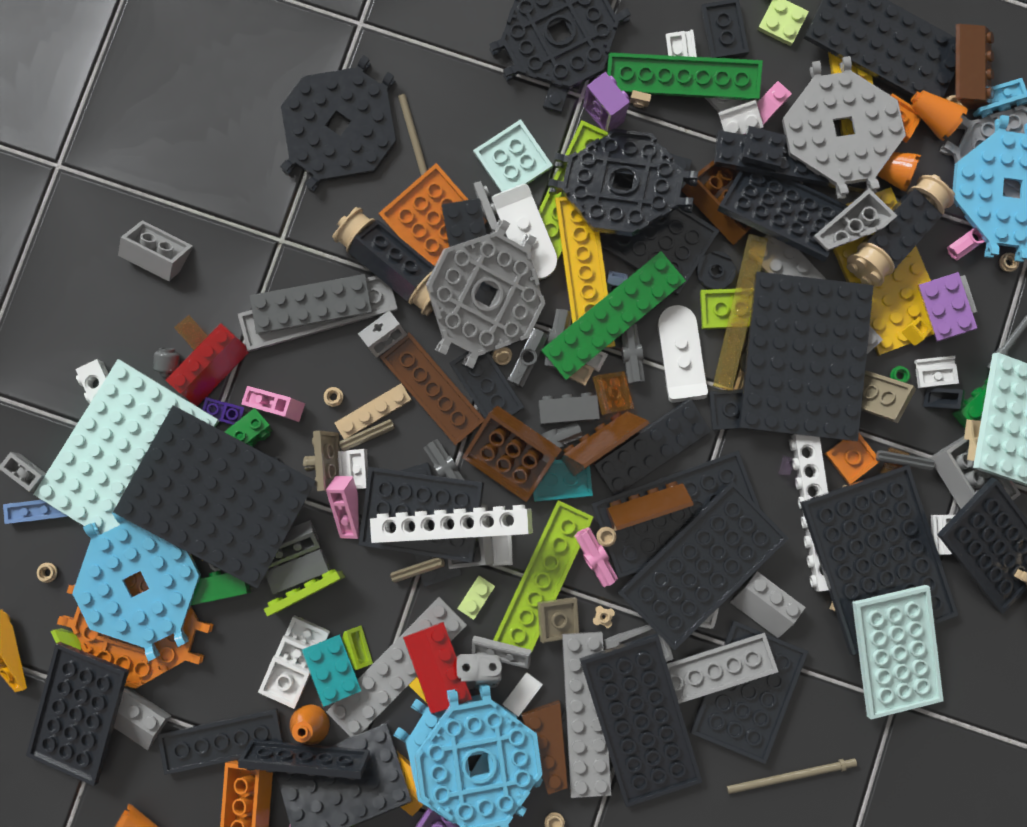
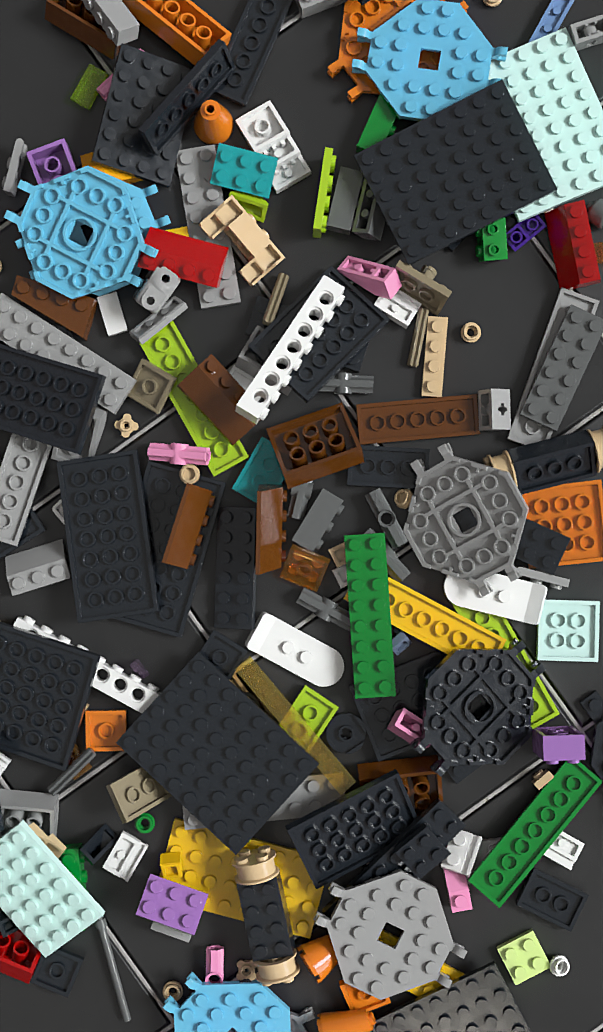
camera: 125 degrees right, 5 degrees up
(273, 403) = (500, 277): bright pink slope -> none
(382, 630) = (246, 235): none -> tan bracket
(476, 597) = (218, 332): yellowish green plate -> none
(530, 558) = (216, 396): none -> reddish brown slope
(677, 226) = (406, 725): none -> bright pink brick
(858, 220) = (299, 883): light grey wedge -> none
(948, 223) = (246, 964): none -> tan plate

